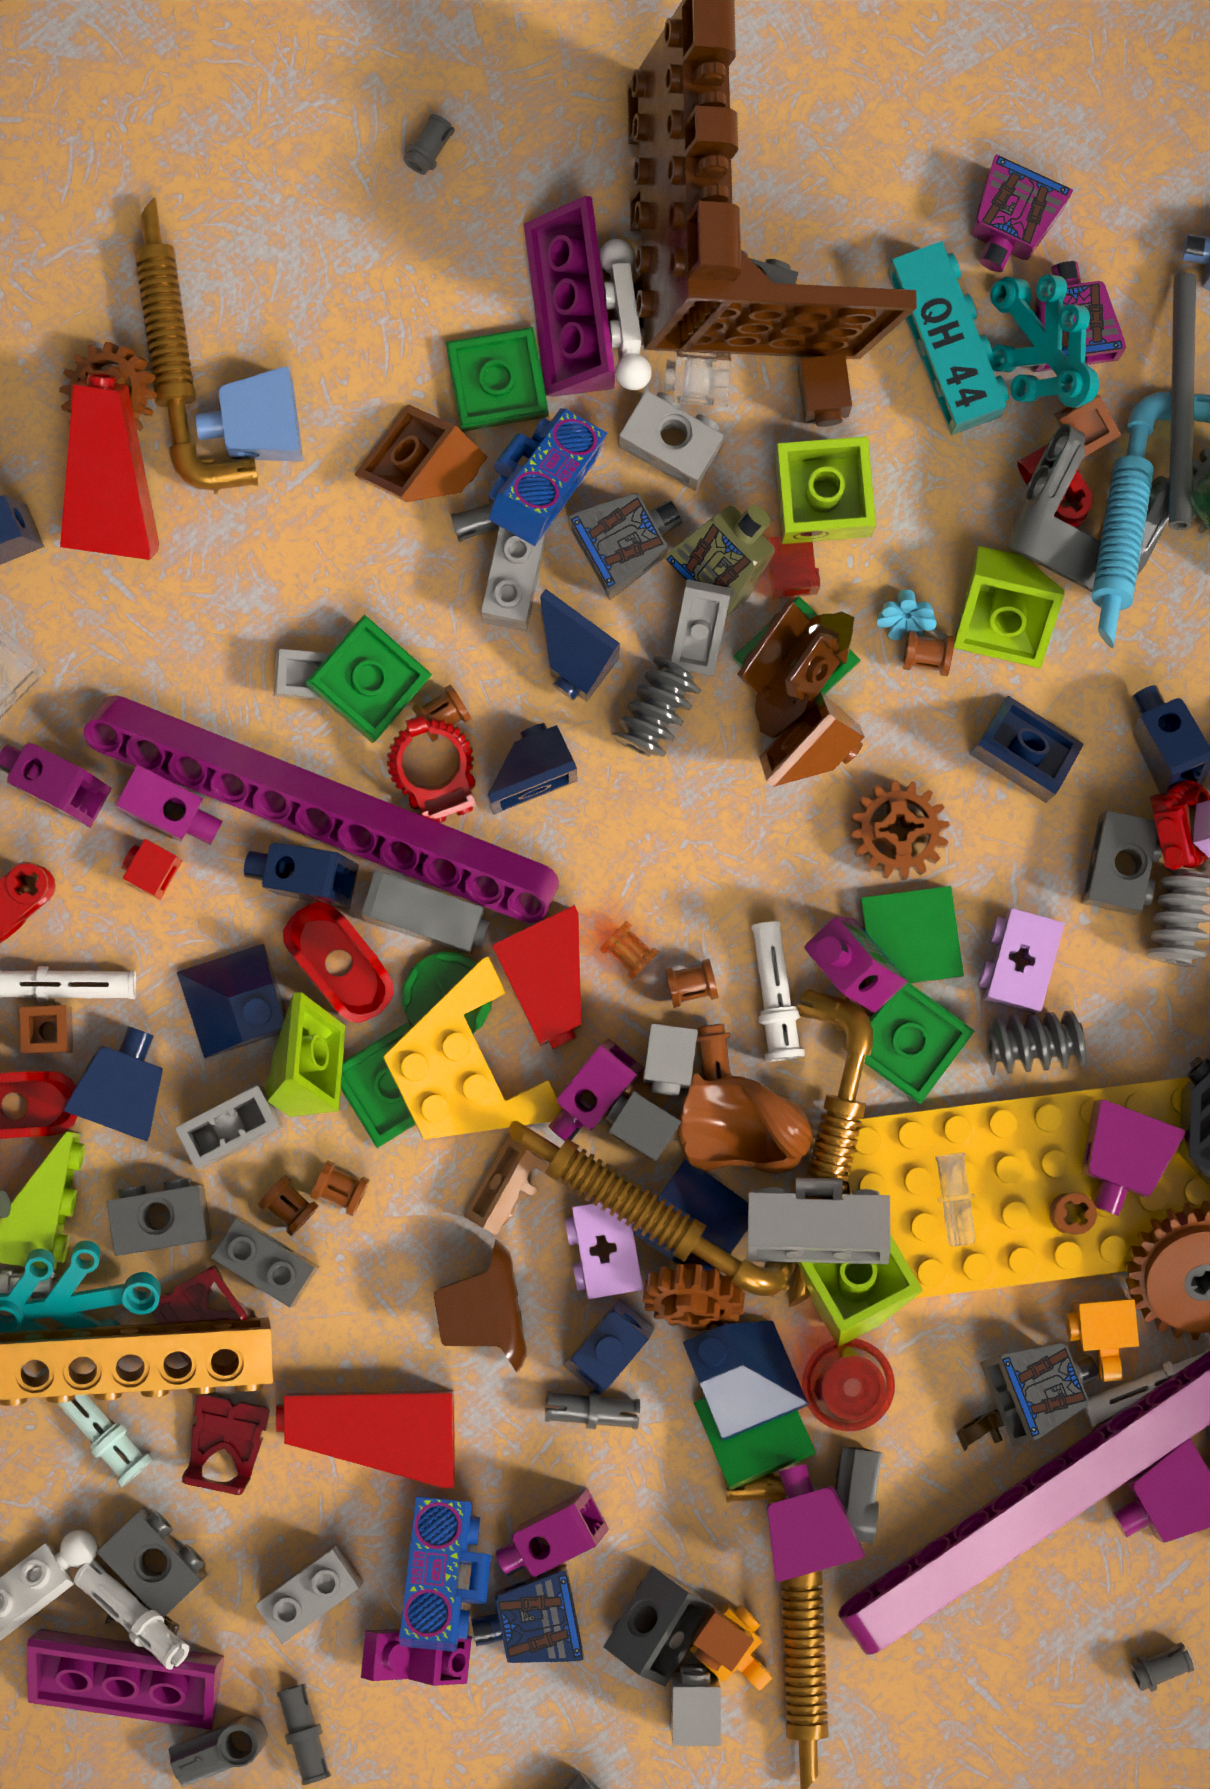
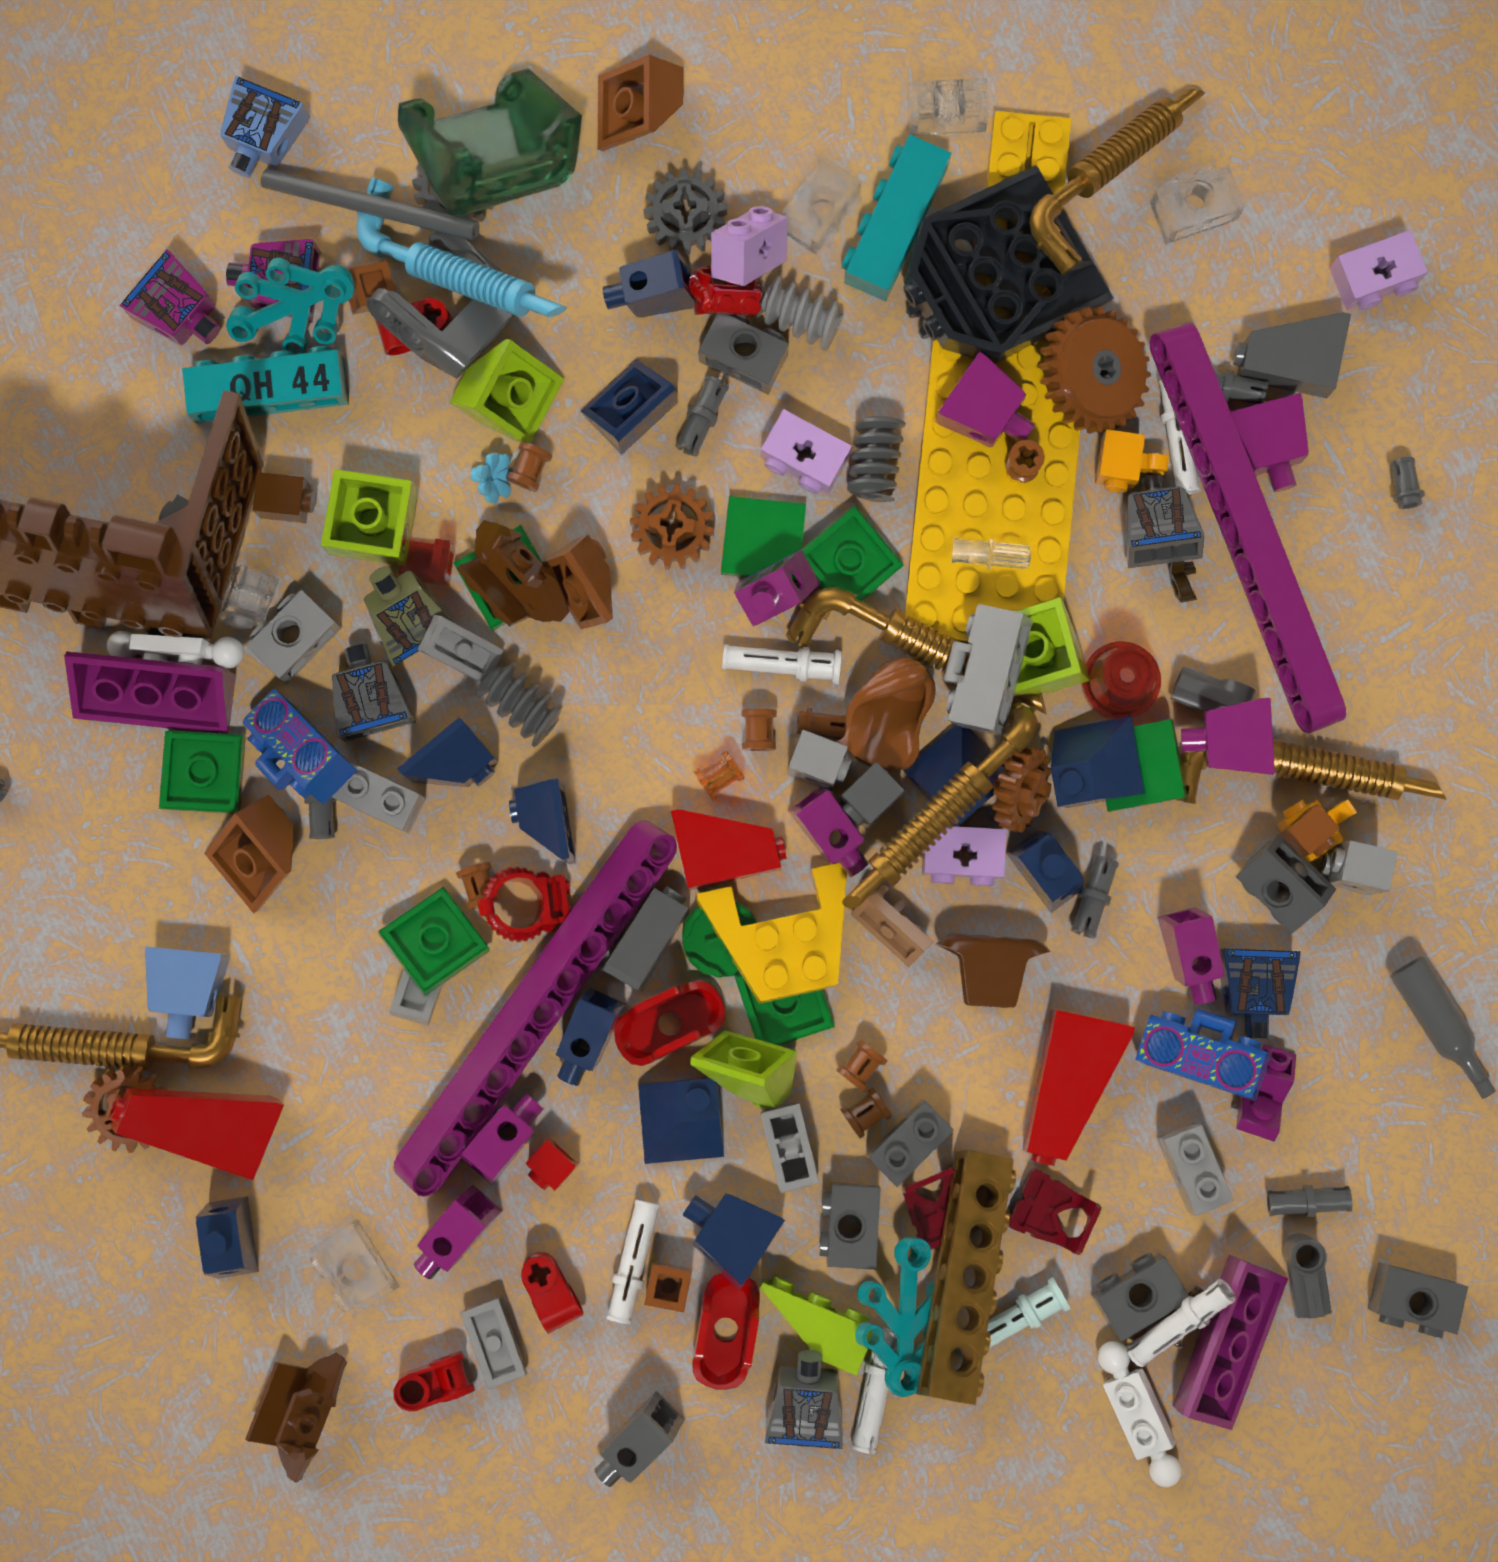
camera: 70 degrees left, 0 degrees up
(1035, 833) = (702, 416): none -> dark grey pin

